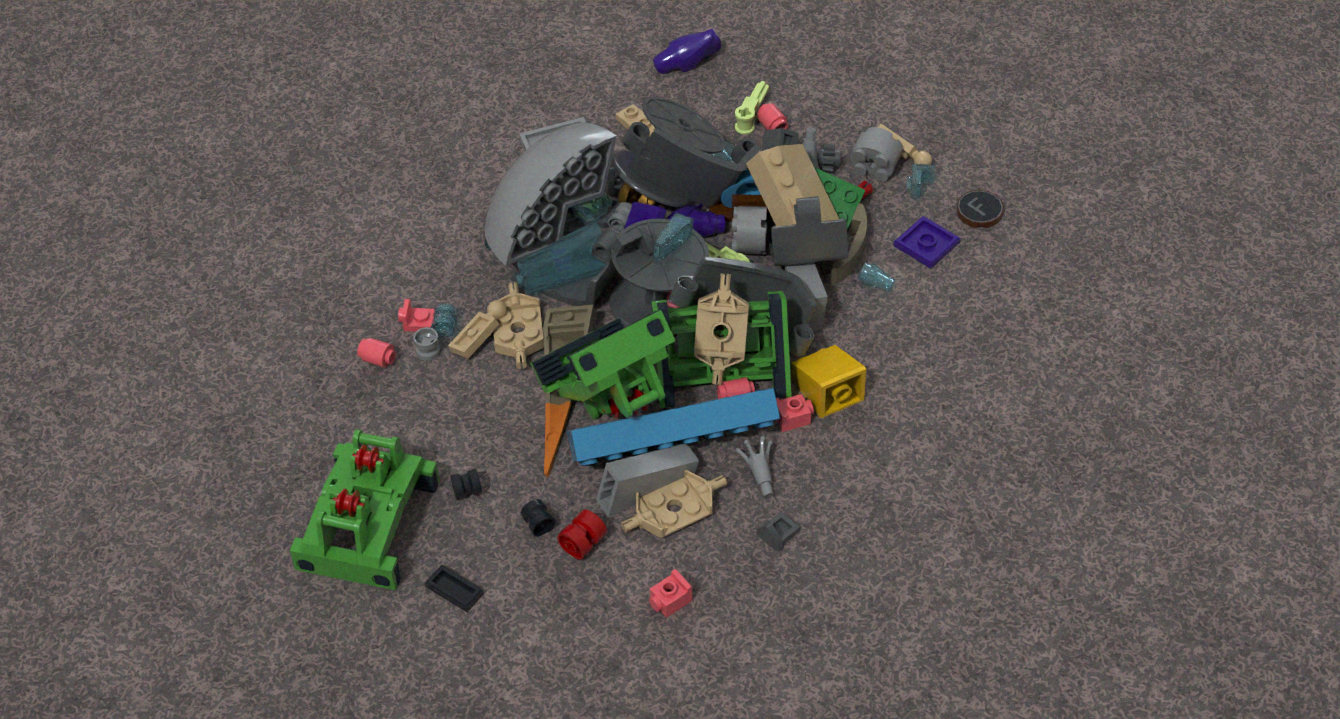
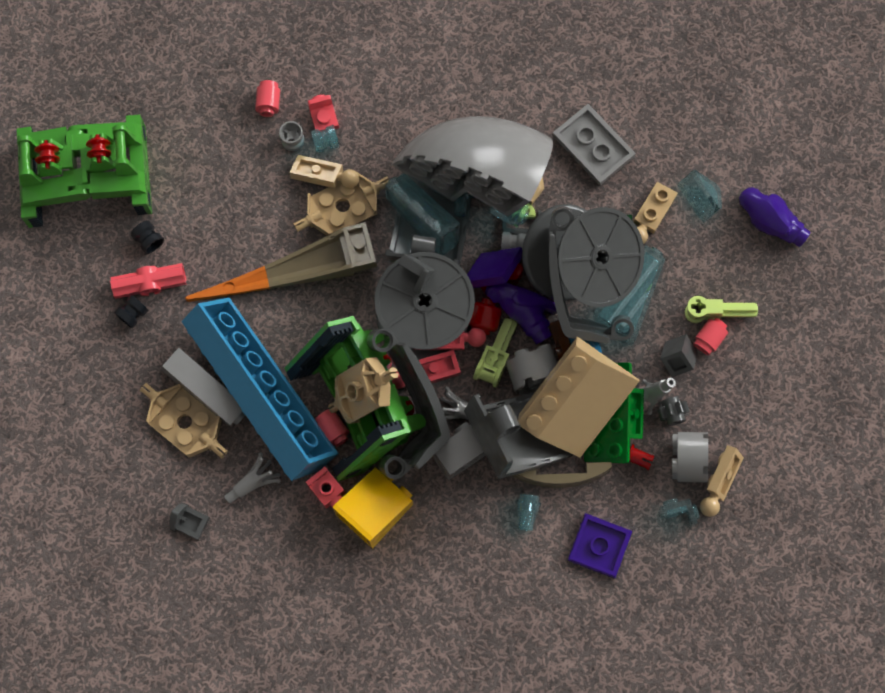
camera: 70 degrees right, 25 degrees up
(454, 588) = (42, 273): black tile -> none
(512, 496) = (148, 280): none -> coral piece
(582, 534) = (122, 355): red wheel -> none
(609, 362) = (254, 310): bright green container -> none
(638, 91) = (702, 194): none -> clear light blue slope
(670, 594) = (92, 459): coral brick -> none
(673, 235) = (442, 303): clear light blue slope -> none
(980, 208) = (667, 585): black tile -> none

